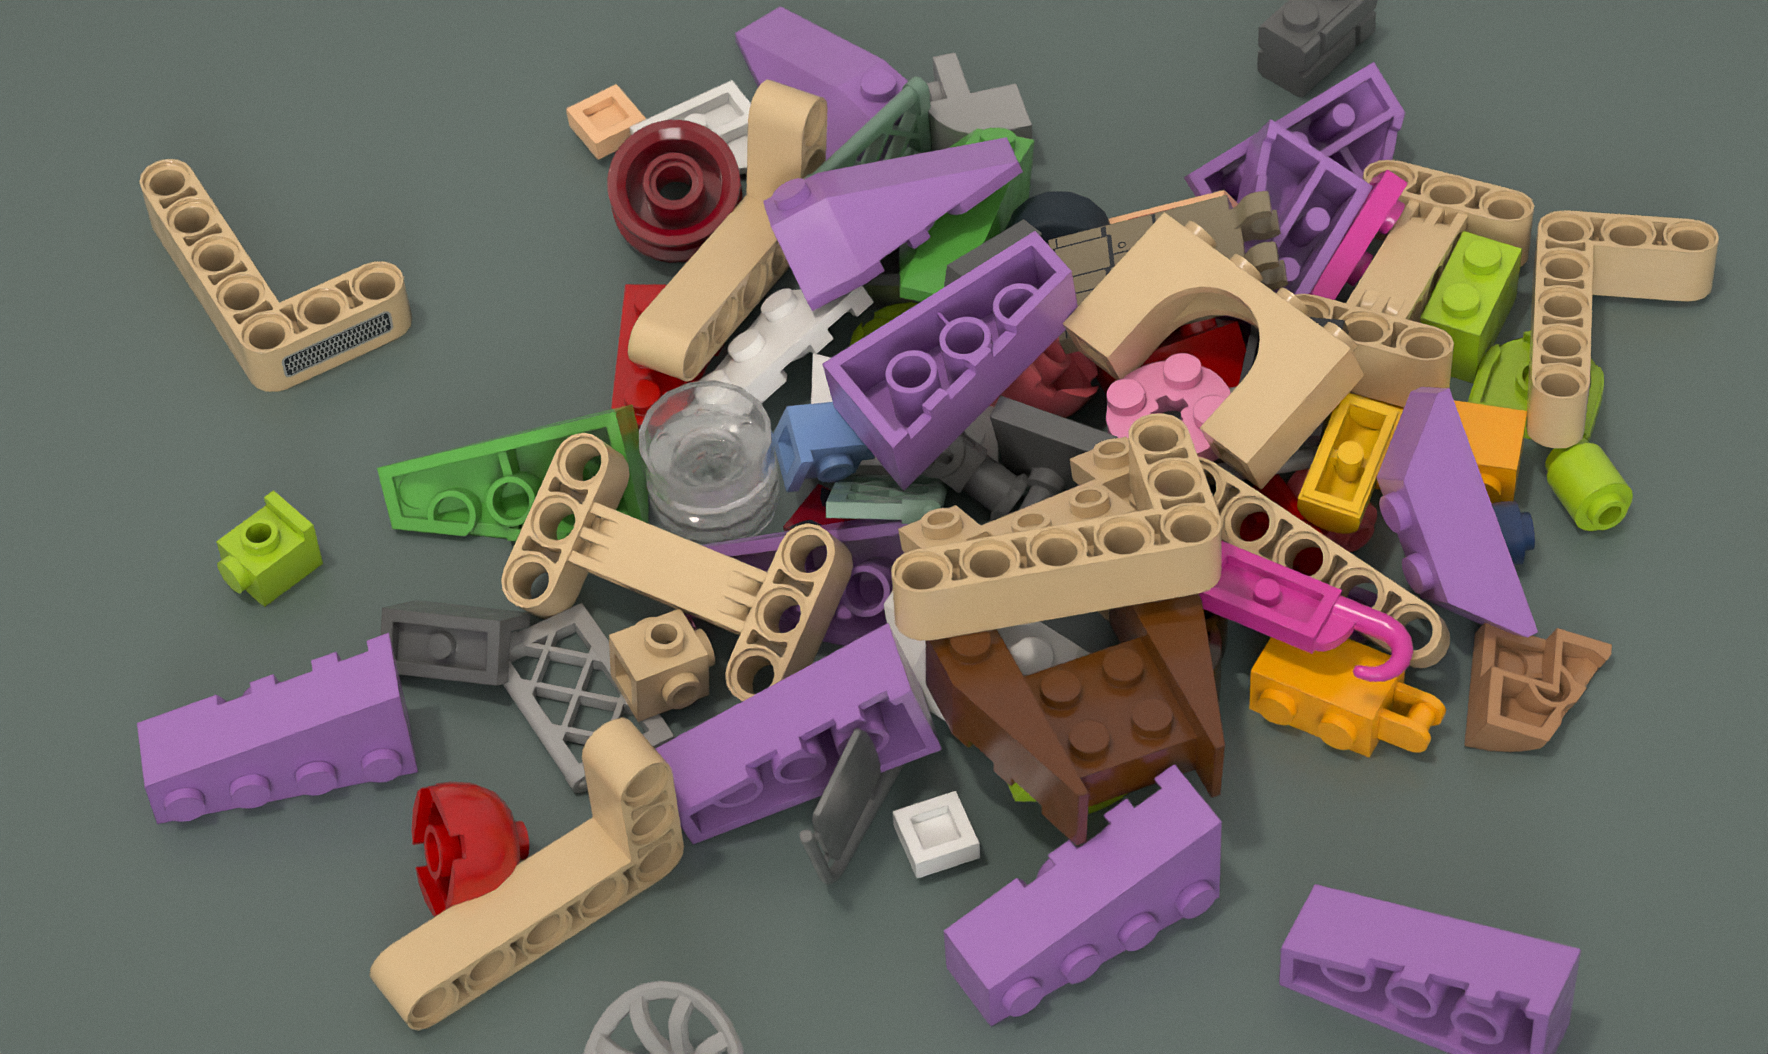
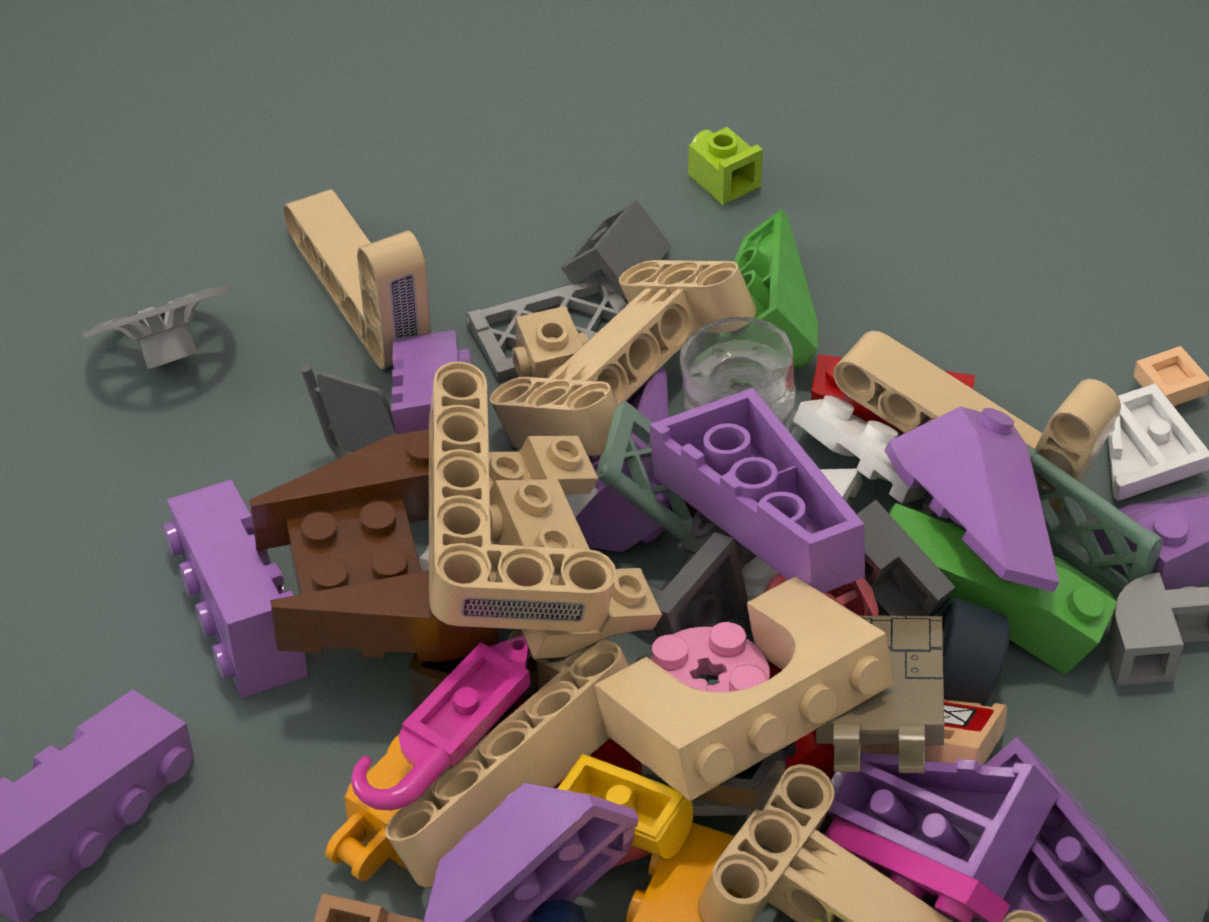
camera: 95 degrees right, 5 degrees down
(270, 339) = (949, 166): tan beam -> none
(281, 738) = (538, 163): medium lavender wedge -> none
(466, 842) = (417, 211): red cylinder -> none
(663, 155) = (1046, 374): dark red wheel -> none

